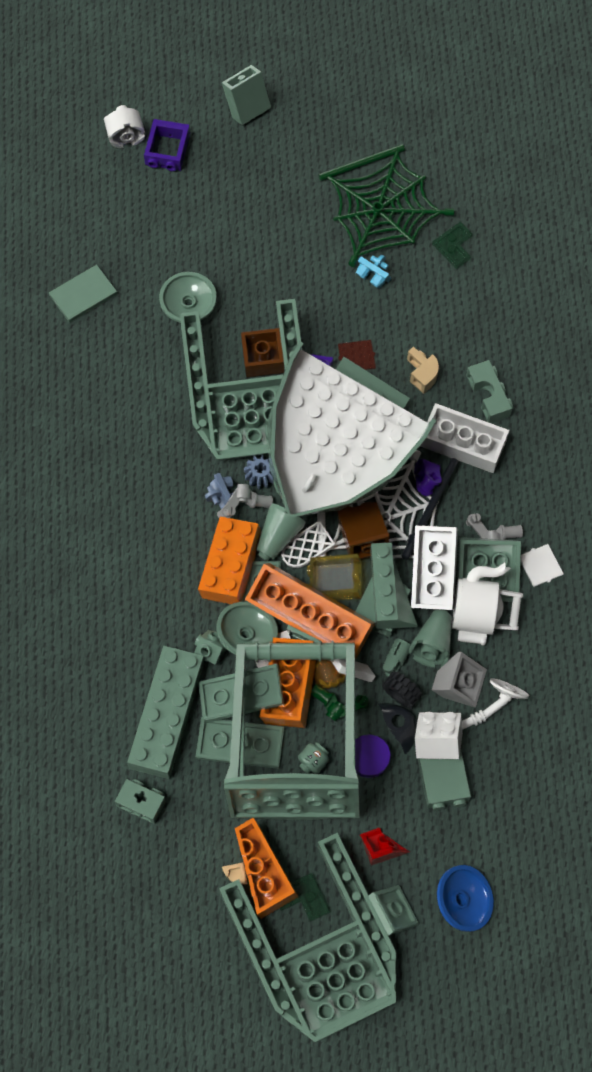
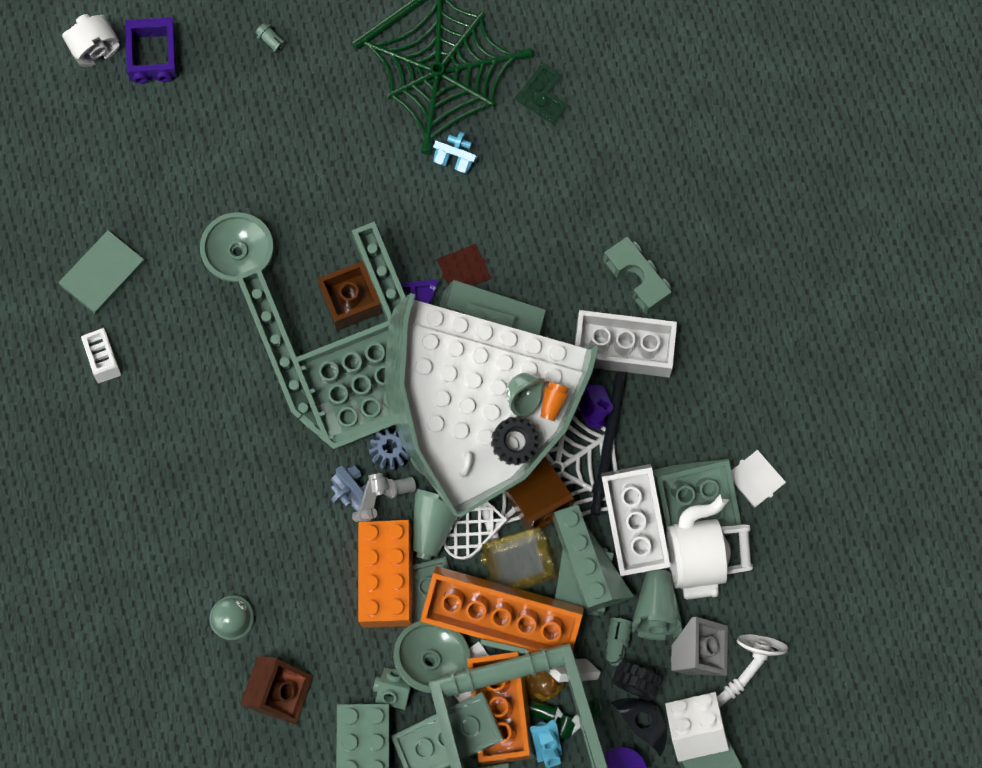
camera: 20 degrees left, 5 degrees up
(64, 363) = (104, 370): none -> white slope
(104, 565) = (231, 618): none -> sand green helmet
(122, 625) = (276, 689): none -> copper slope
(256, 153) = (270, 37): none -> sand green pin
(317, 718) = (546, 743): none -> medium azure hips
(351, 461) = (499, 440): none -> black tyre
(368, 440) = (524, 394): none -> sand green helmet
(390, 450) = (553, 400): none -> orange cone
(426, 372) = (555, 267): tan brick -> none
(500, 533) = (697, 454): light grey pin -> none

